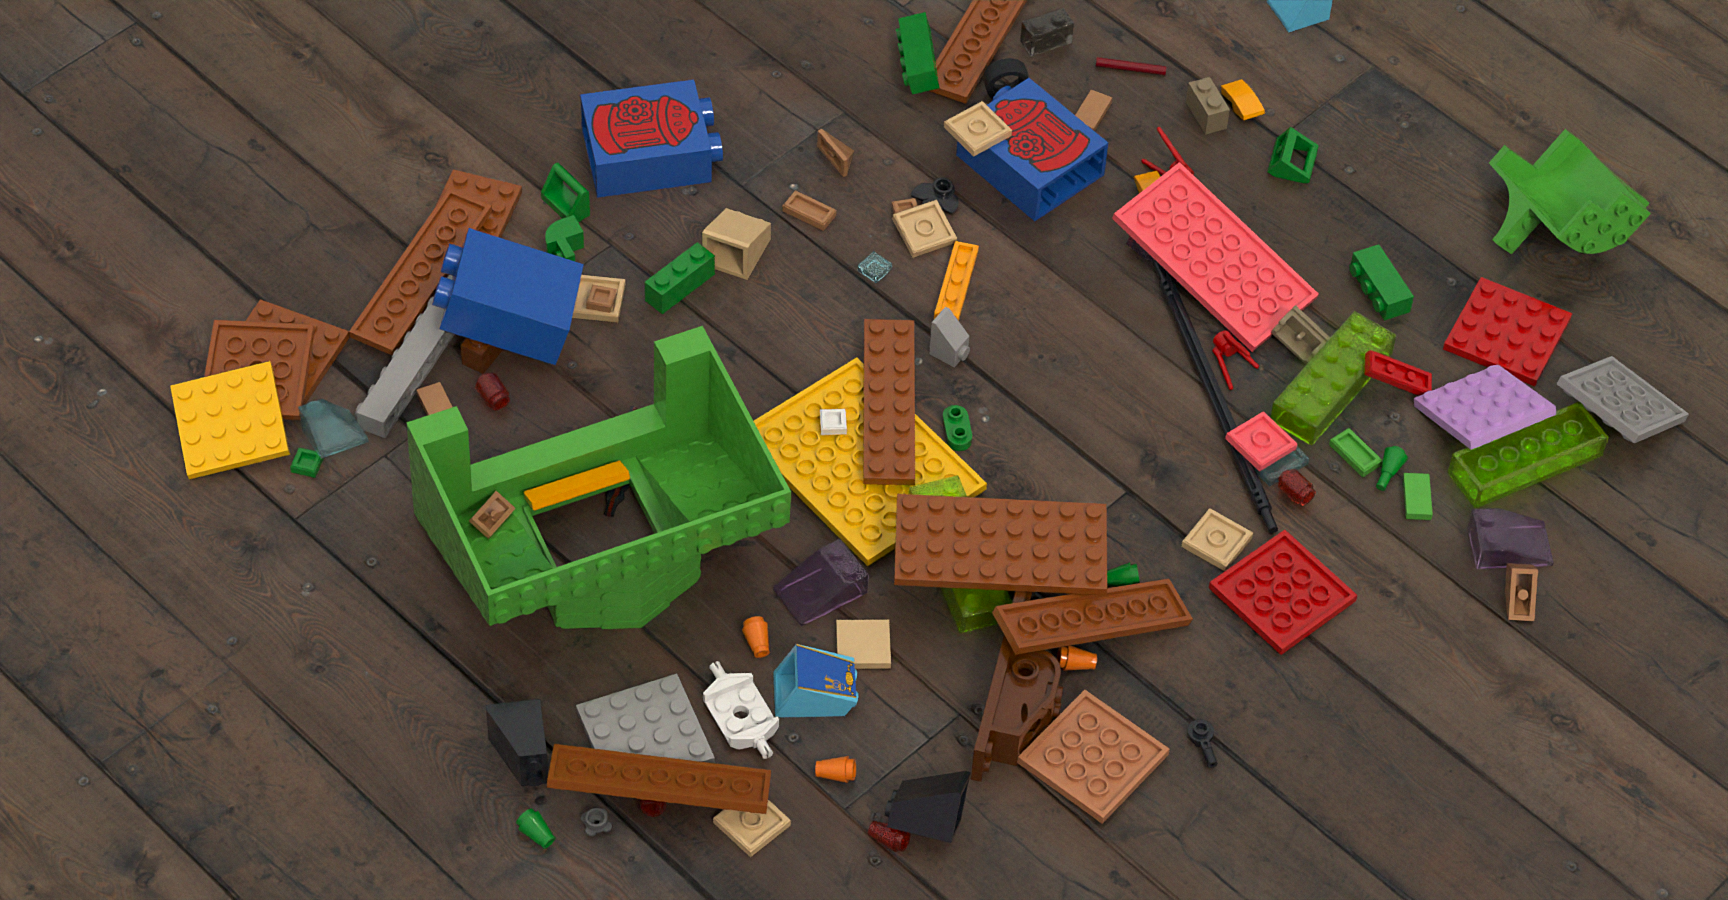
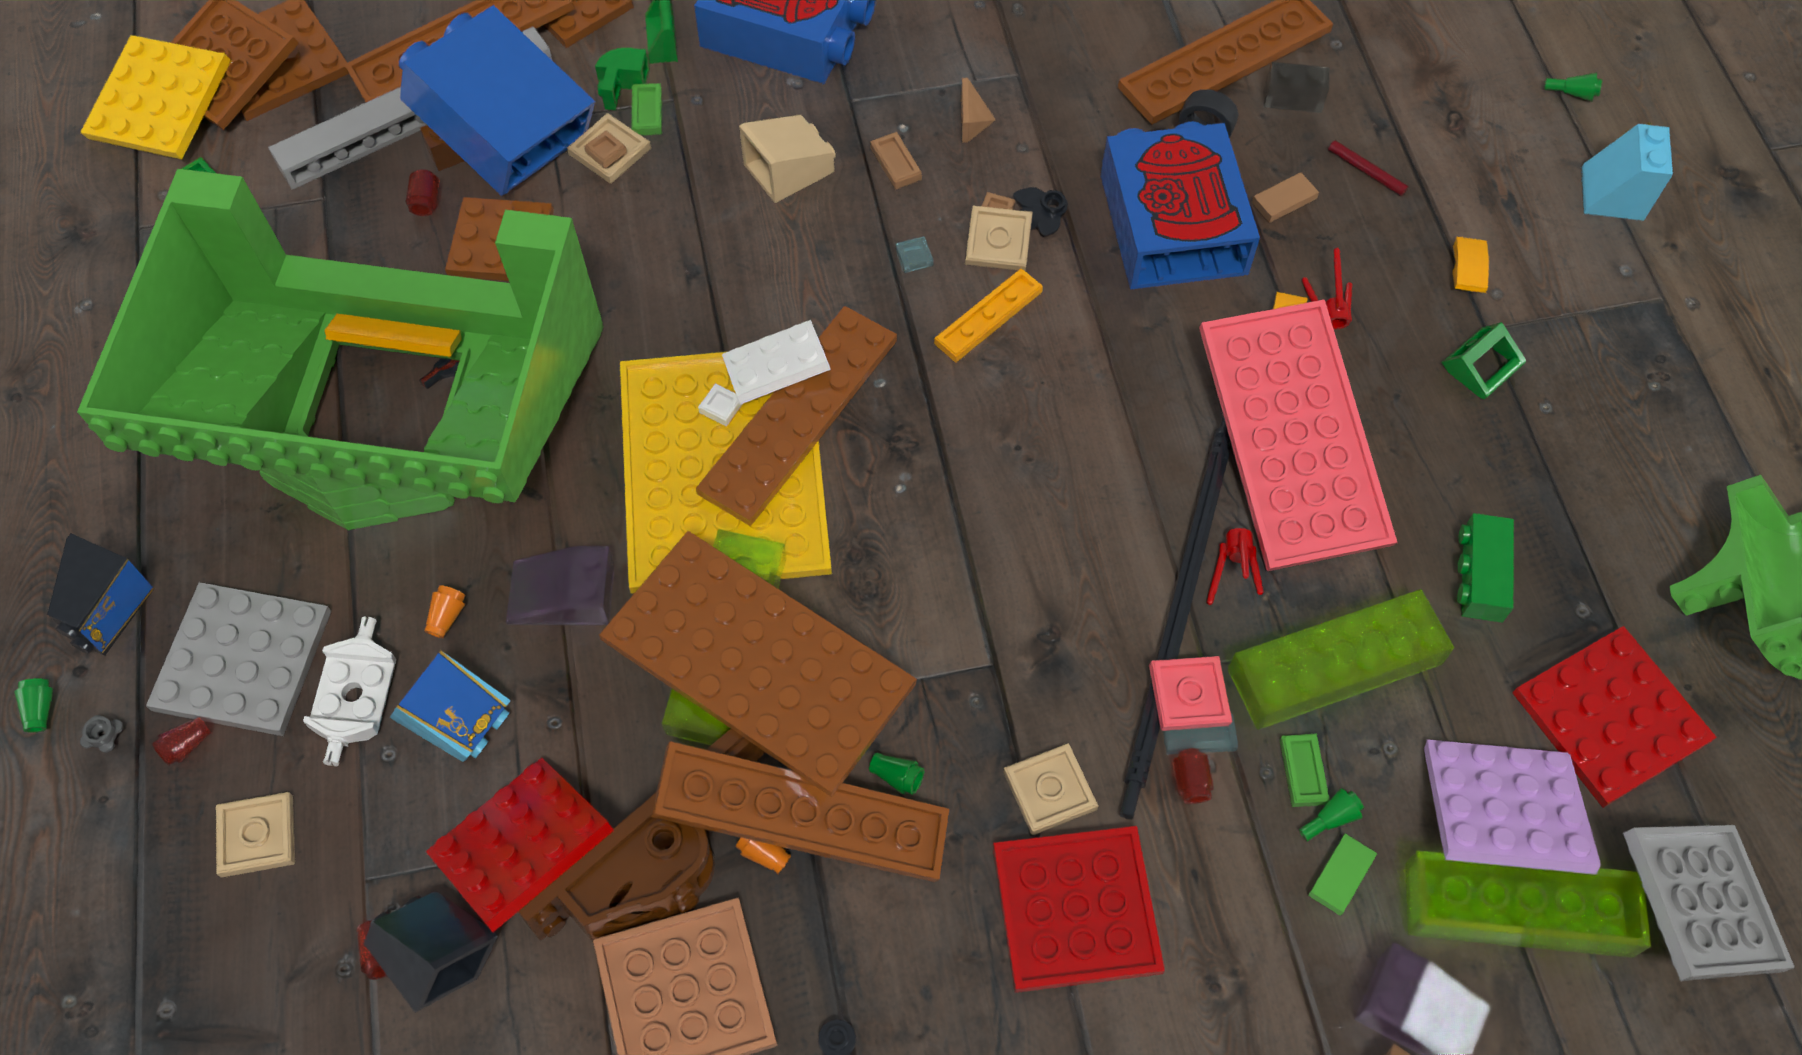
camera: 35 degrees right, 10 degrees up
(330, 427) = (239, 148): clear light blue slope -> none
(433, 398) = (362, 182): medium nougat tile -> none
(492, 514) = (275, 321): medium nougat slope -> none
(575, 395) = (473, 244): none -> dark orange plate
(600, 258) = (647, 109): none -> bright green tile
(659, 778) = (182, 728): dark orange plate -> none
(679, 278) = (699, 166): green brick -> none
(837, 769) = (391, 828): orange cone -> none
(851, 375) = (775, 362): none -> white plate
(865, 641) = (549, 686): tan tile -> none
(918, 53) = (1134, 46): green brick -> none
(932, 725) = (518, 843): none -> red plate
(948, 339) = (919, 373): light grey slope -> none
(955, 426) = (858, 480): green plate -> none
(977, 128) = (1121, 152): tan tile -> none
(1207, 105) = (1422, 251): dark tan brick -> none
(1300, 335) = (1335, 582): dark tan hinge -> none
(1397, 373) = (1423, 699): red tile -> none

